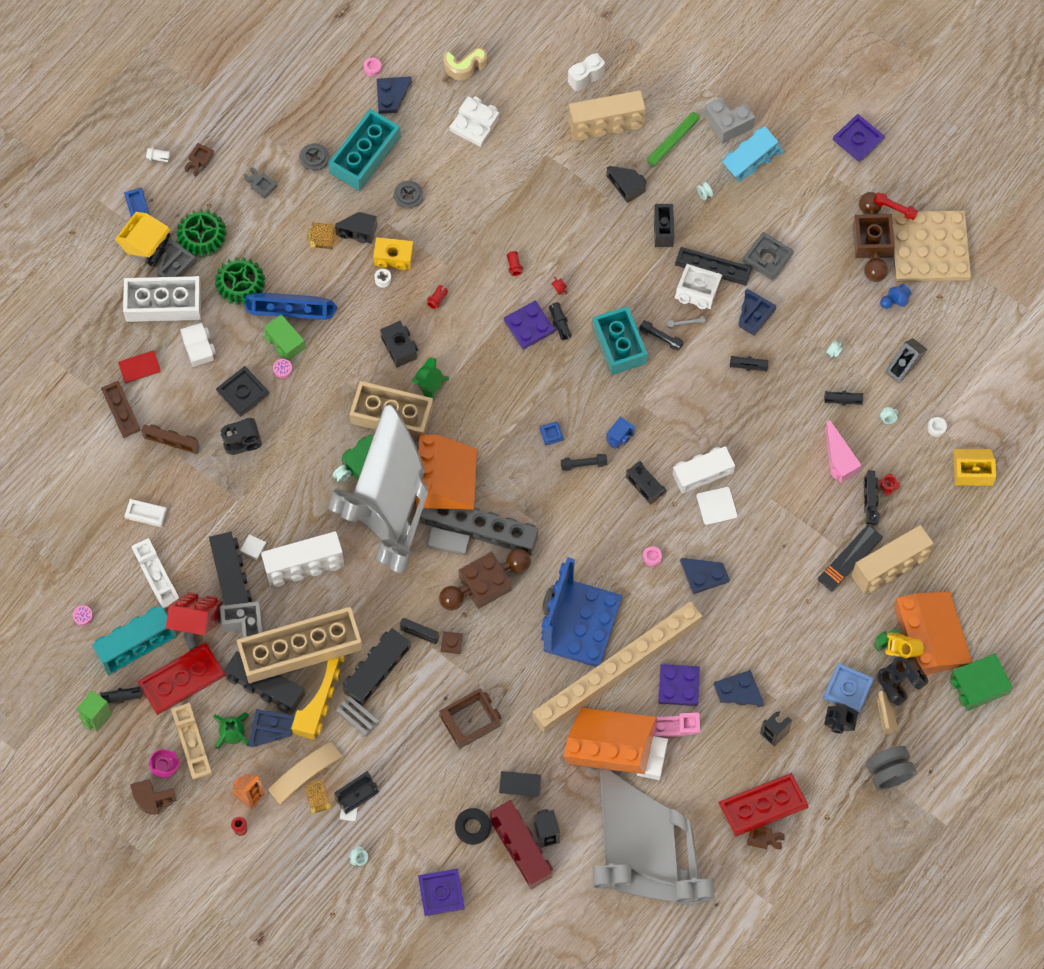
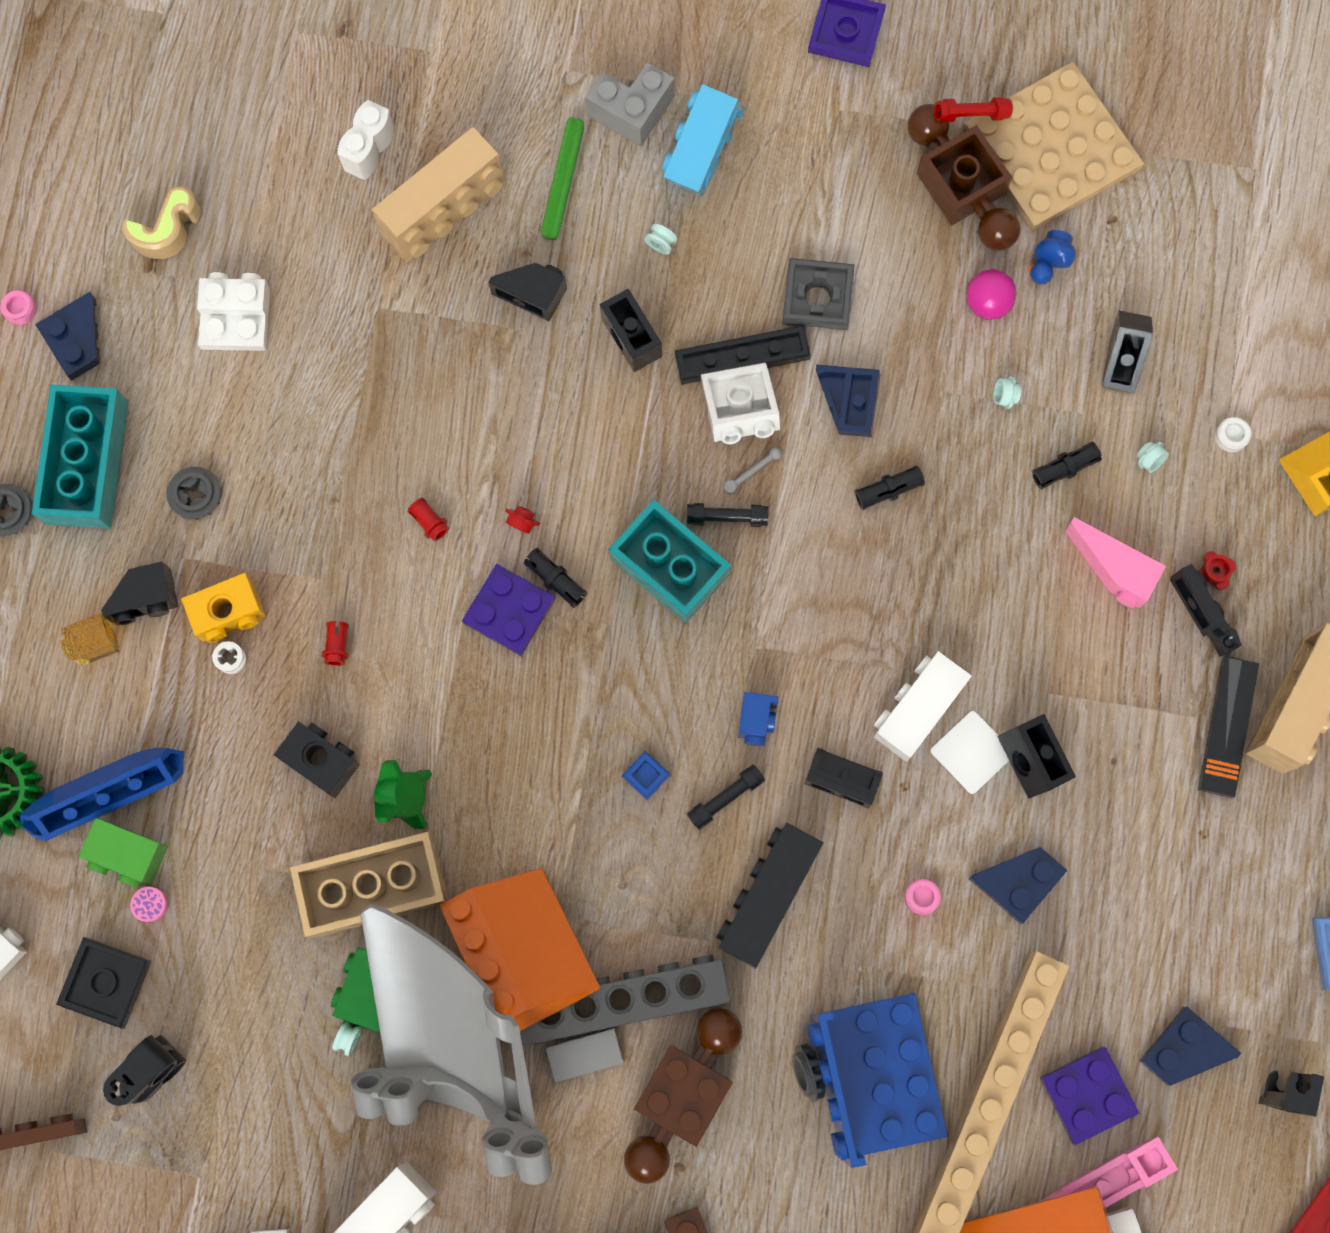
camera: 25 degrees left, 10 degrees up
(579, 515) = (770, 895): none -> black brick
(744, 518) = (1036, 756): none -> black brick
(854, 299) = (991, 294): none -> dark pink hair

